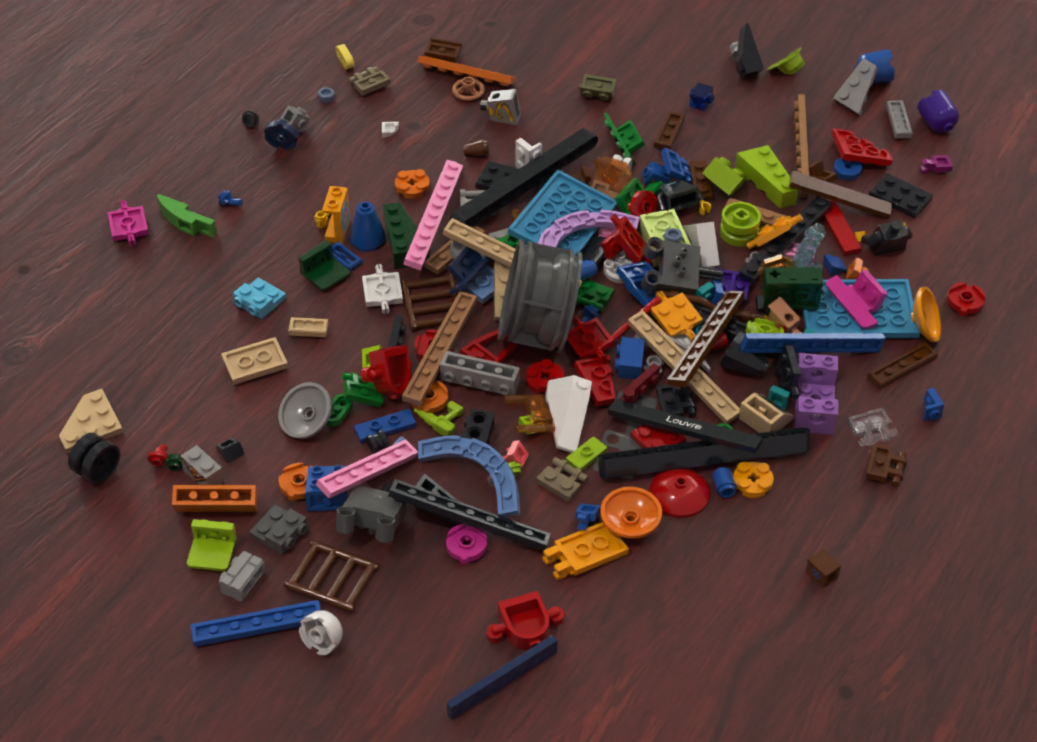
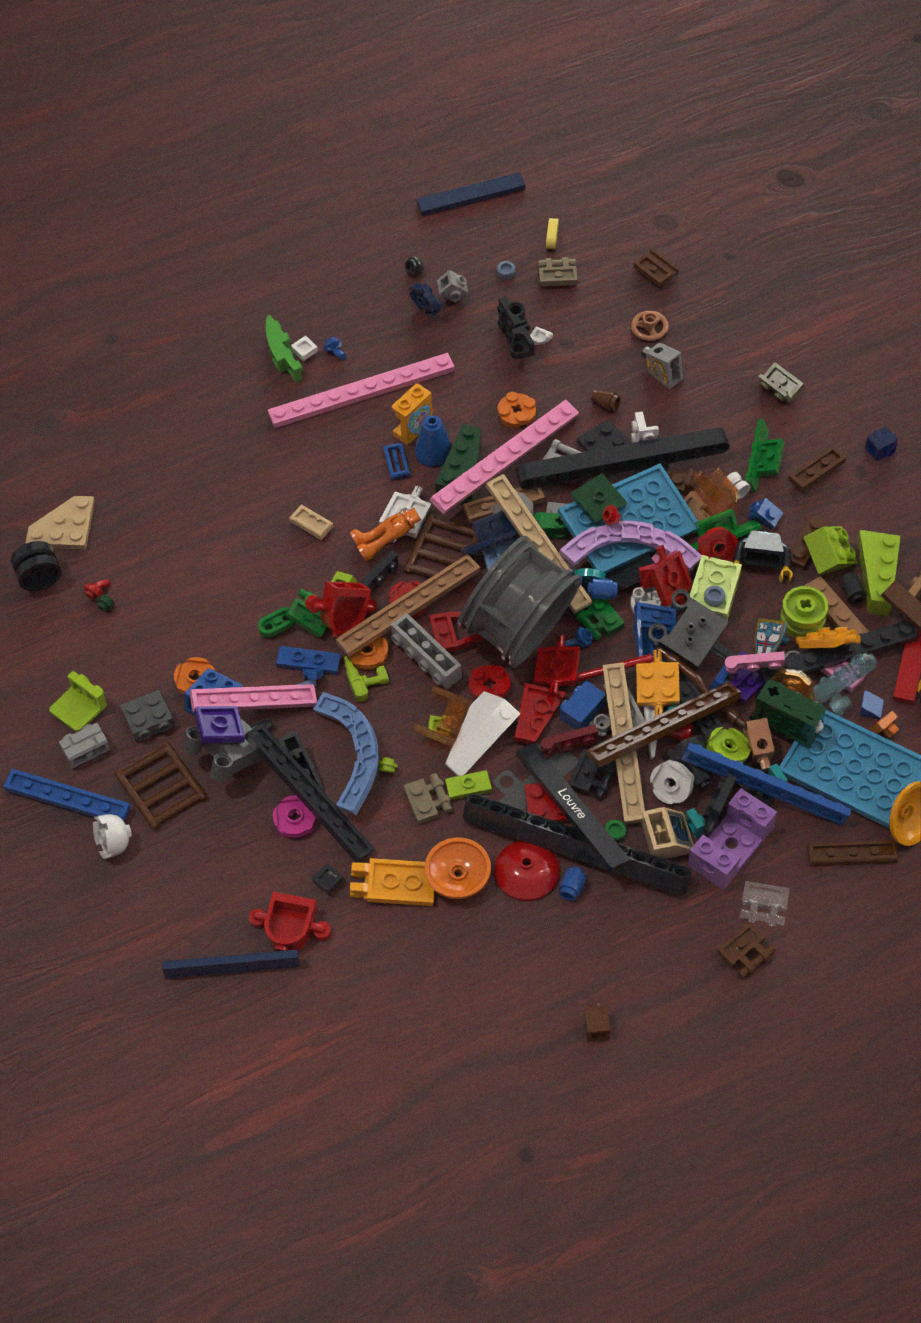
camera: 35 degrees right, 10 degrees up
(128, 223) = (227, 332): dark pink plate -> none
(202, 467) = (120, 622): light grey brick -> none
(204, 208) = (304, 348): none -> white plate
(214, 498) = (110, 658): orange brick -> none
(230, 449) = (160, 614): black slope -> none
(254, 360) = (240, 533): tan plate -> none
(256, 55) = (470, 194): none -> dark blue tile
(258, 297) = (289, 468): medium azure plate -> none
(272, 221) = (361, 390): none -> bright pink plate
(299, 405) = (243, 609): light grey dish -> none
(321, 267) = (366, 464): dark green bracket -> none
(361, 495) = (219, 724): none -> dark purple plate
(372, 127) = (516, 329): none -> black plate
(377, 441) = (287, 673): black wheel -> none
(383, 298) = (391, 529): none -> orange piece
(397, 433) = (313, 674): none -> blue tile
(473, 72) = (661, 302): orange plate -> none
(479, 425) = (388, 712): black brick -> none
(516, 453) = (402, 752): coral tile -> none
(530, 574) = (327, 879): none -> black plate
(533, 209) = (596, 496): none -> dark green plate
(555, 213) = (611, 515): none -> red plate
(586, 513) = (418, 845): blue plate -> none
(676, 166) = (784, 513): blue plate -> none
(704, 236) = (746, 616): white arch -> none
(705, 291) = (708, 672): teal plate -> none
(731, 251) = (769, 635): none -> shield
(735, 367) = (682, 776): none -> white plate
(739, 265) = (754, 662): none -> bright pink plate
(759, 195) = (852, 588): none -> black brick
(763, 476) = (601, 883): light orange plate -> none
(859, 299) = (857, 757): dark pink plate -> none
(933, 405) = (843, 917): blue bracket -> none

